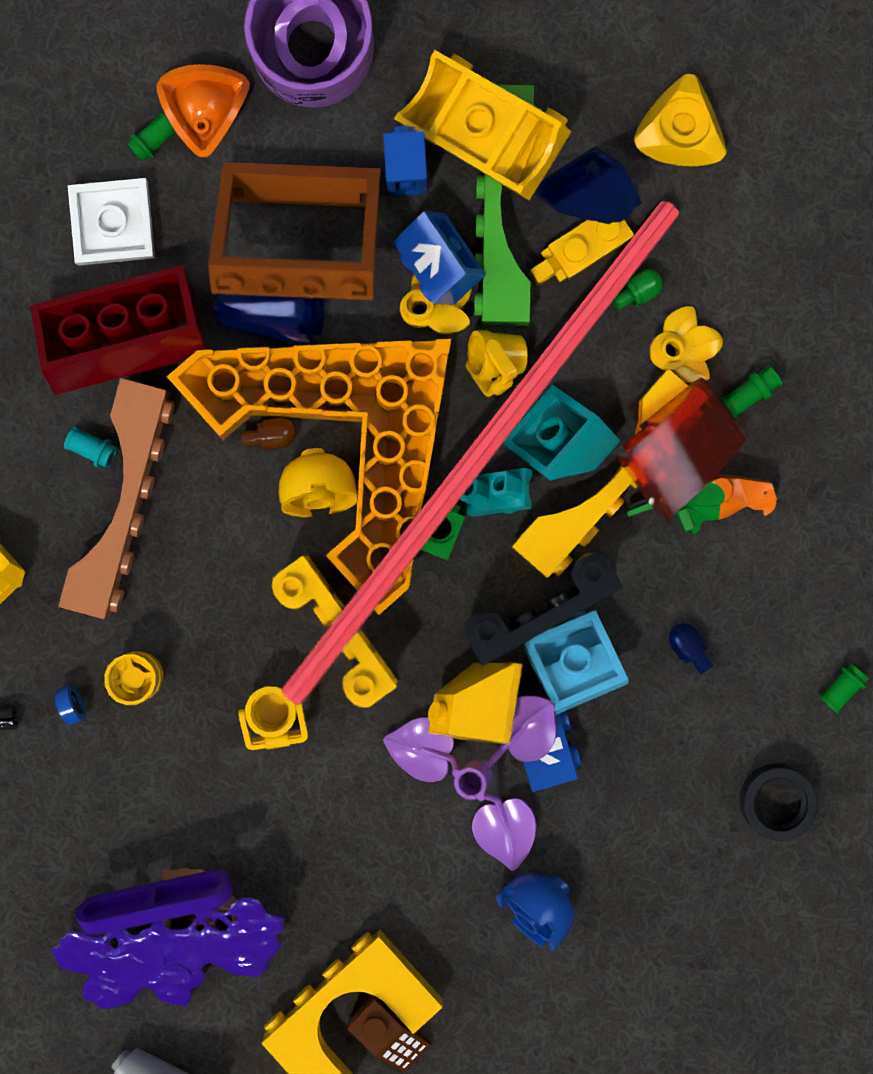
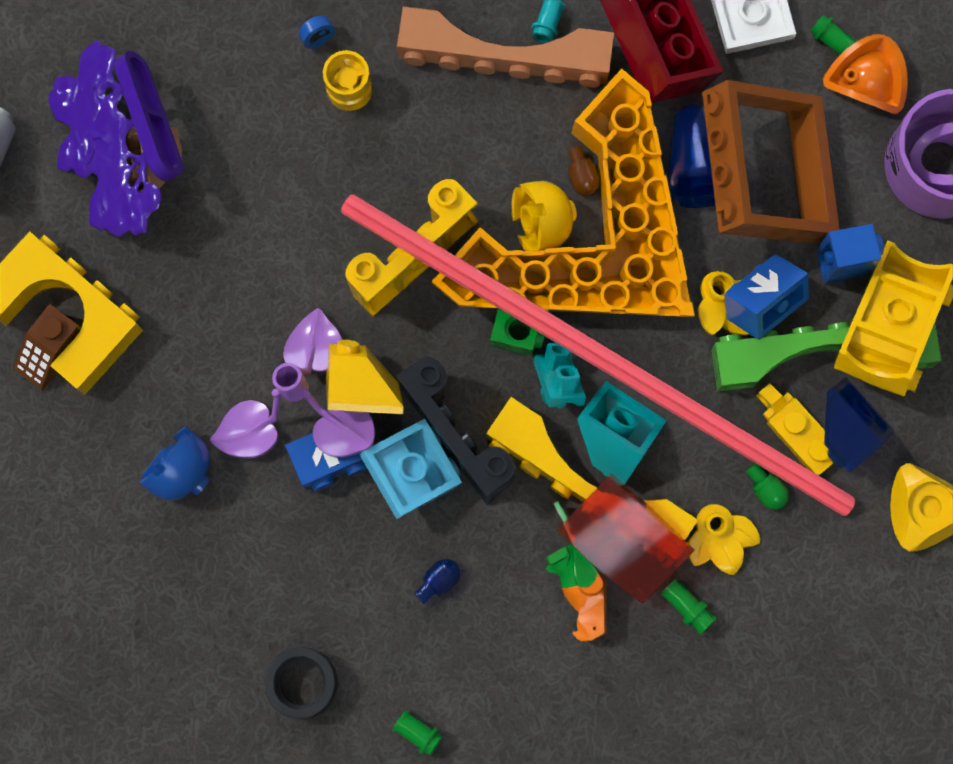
camera: 90 degrees right, 10 degrees down
(271, 717) = (323, 202): yellow piece -> none
(496, 357) = (682, 362): yellow piece -> none

